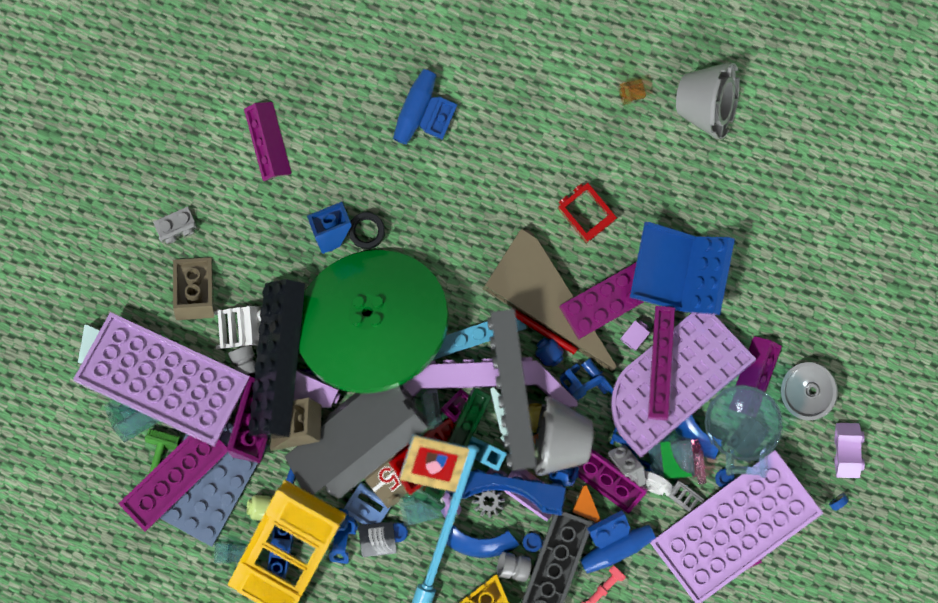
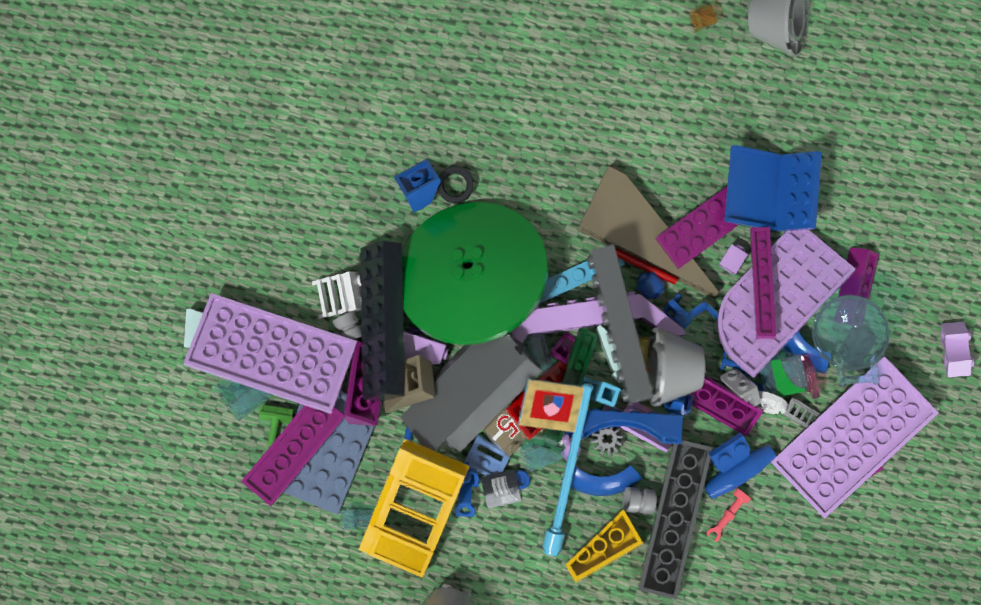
camera: 10 degrees left, 0 degrees up
(175, 225) = (263, 200): light grey bracket -> none
(193, 289) = (289, 261): dark tan slope -> none
(257, 506) = (379, 469): yellowish green head -> none
(267, 140) = (345, 106): magenta panel -> none
(285, 542) = (408, 498): blue slope -> none
(421, 110) = (496, 59): blue plate -> none
(532, 542) = (654, 475): blue tile -> none
(579, 190) = (661, 122): red window -> none
(585, 506) = (703, 433): orange slope -> none
(593, 372) = (696, 300): blue axle -> none
(722, 478) = (836, 391): blue tile -> none
(797, 391) = (899, 295): light grey dish -> none
(839, 502) = (952, 401): blue tile -> none

